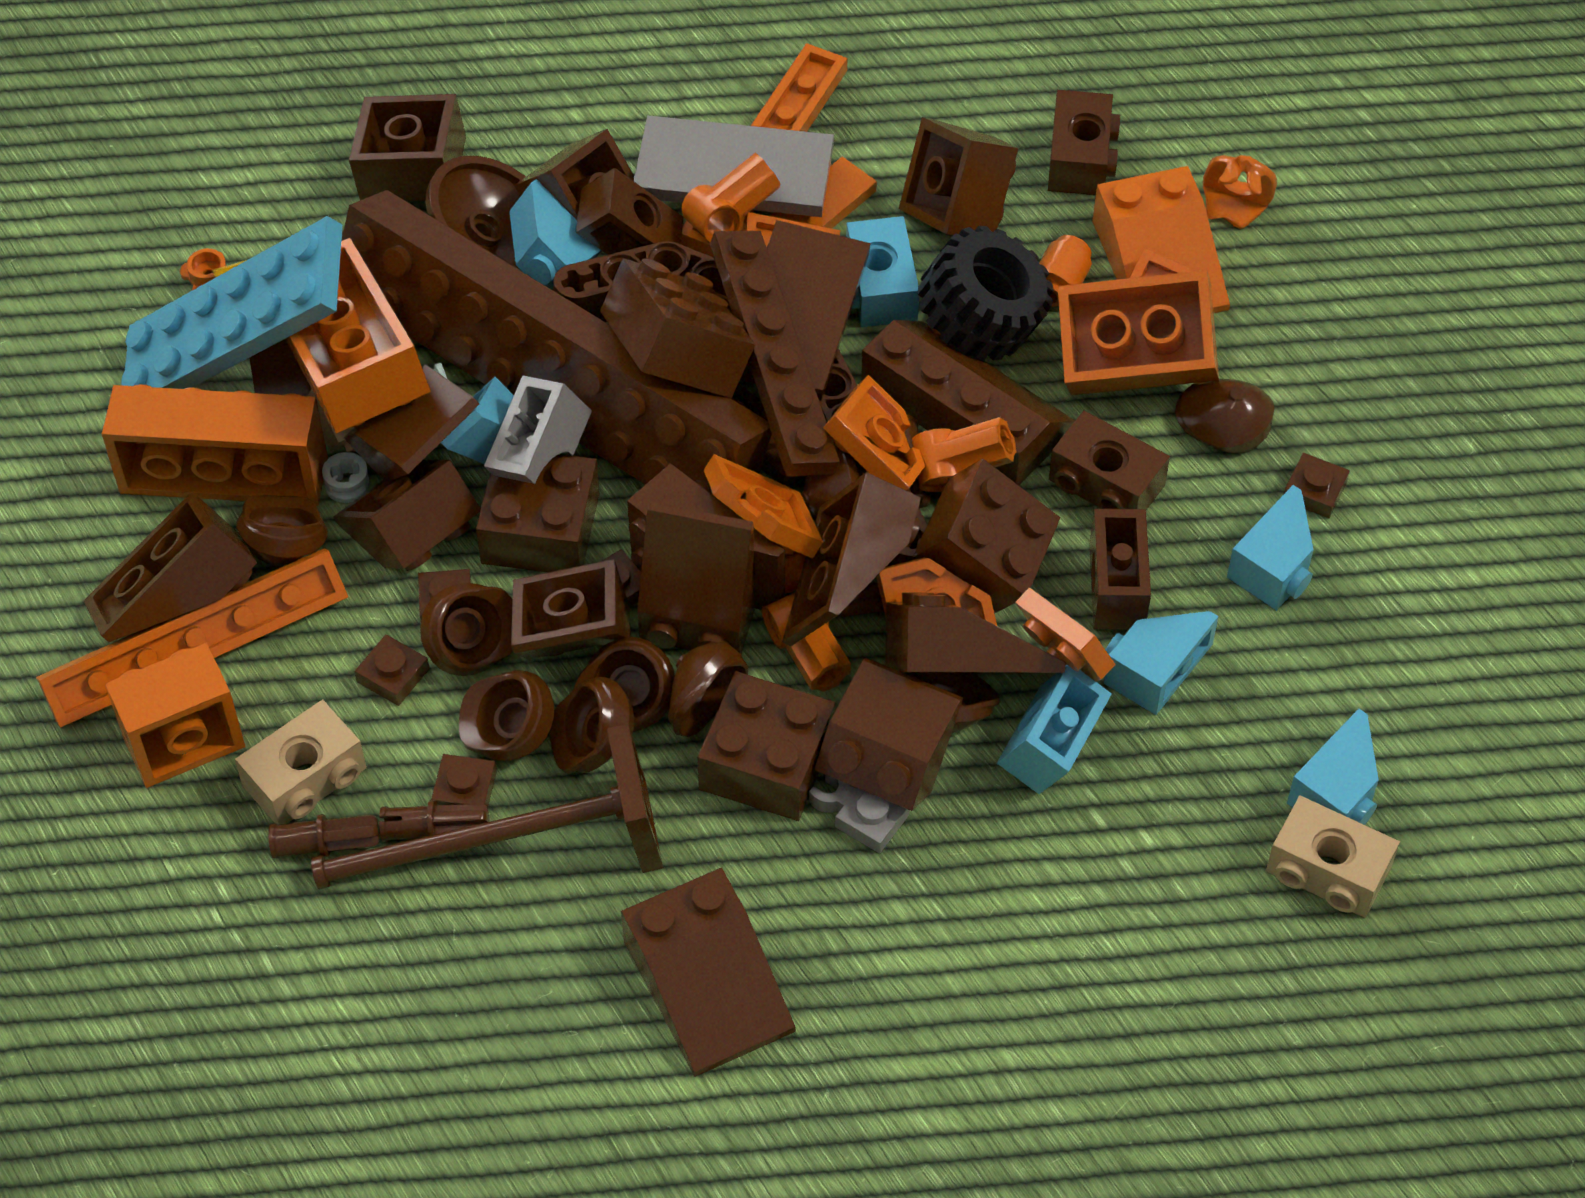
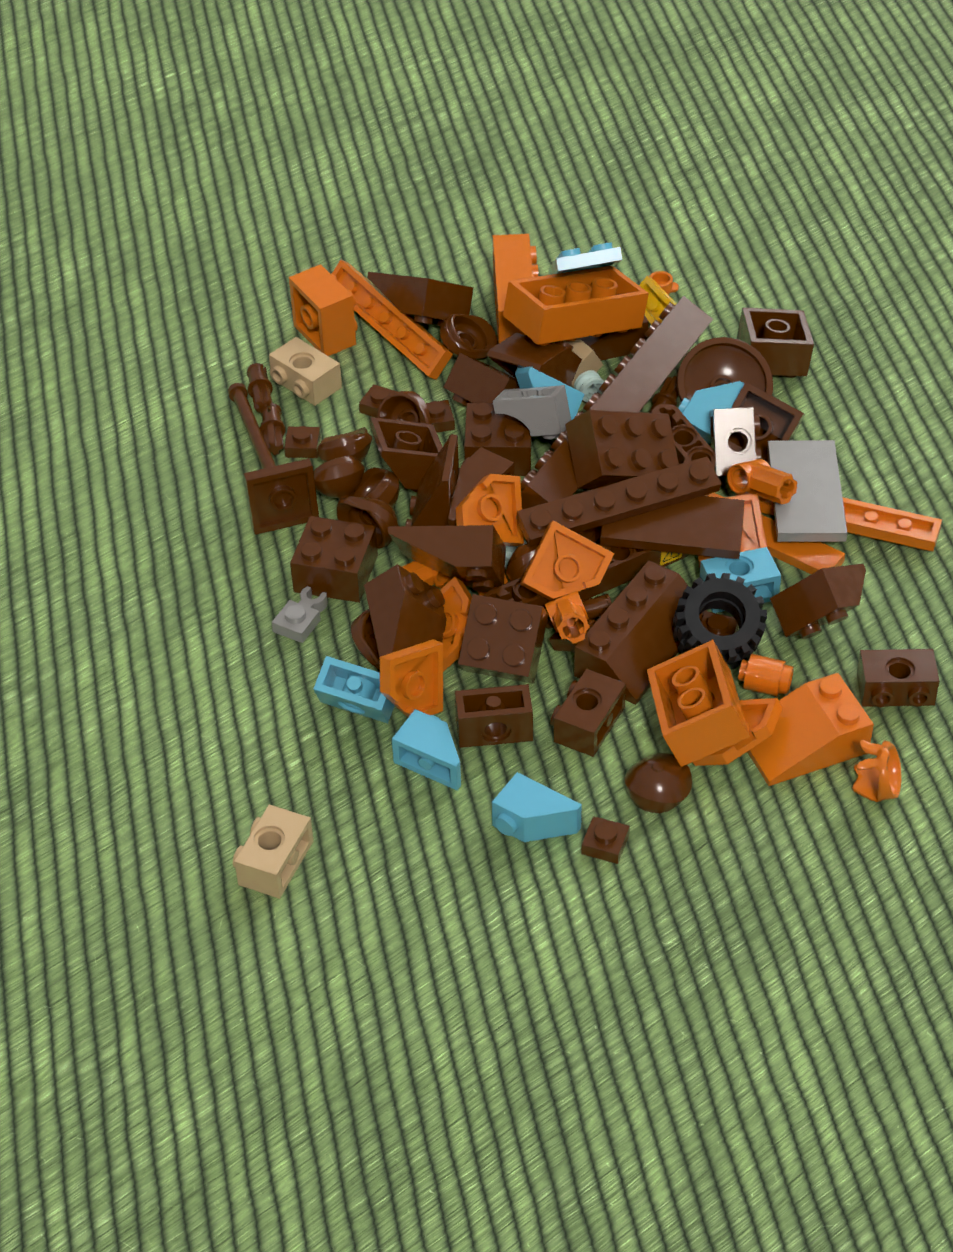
camera: 85 degrees right, 10 degrees down
(706, 971) = (176, 551): reddish brown slope -> none
(889, 734) = (332, 605): reddish brown slope -> none
(1342, 772) = (340, 854): medium azure slope -> none

